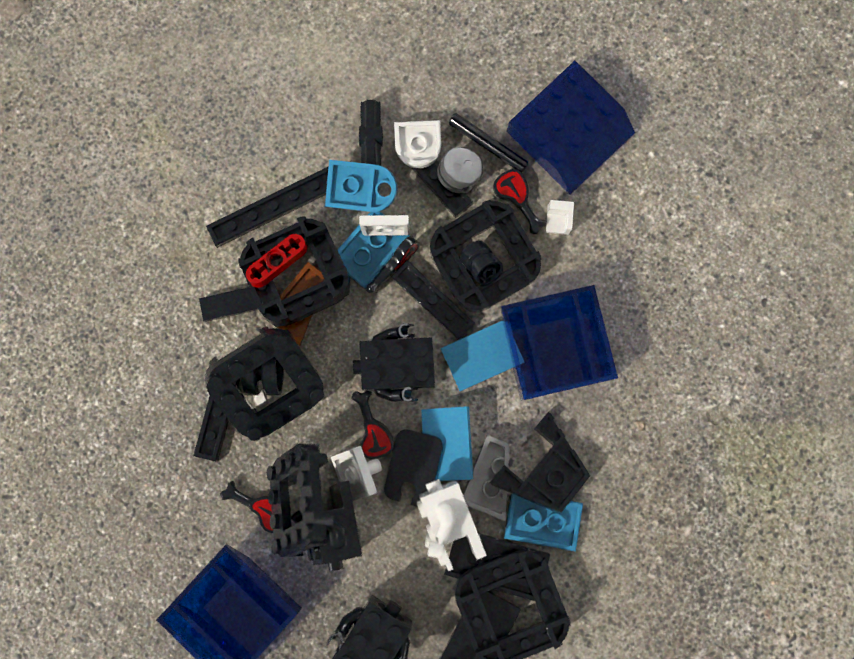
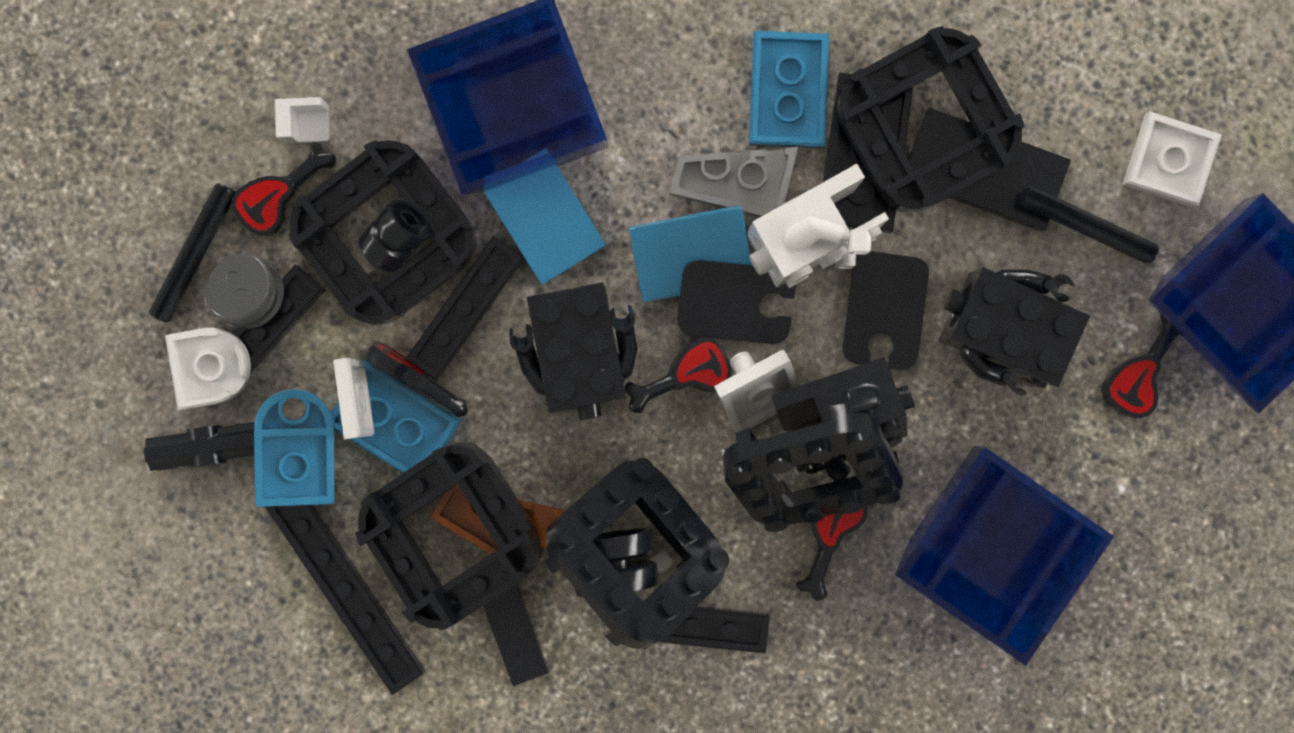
camera: 95 degrees left, 5 degrees up
(258, 266) = (447, 594): red beam -> none
(403, 563) = (888, 299): none -> black piece
(554, 478) = (722, 79): black wing -> none
(571, 127) = (148, 118): clear blue slope -> none

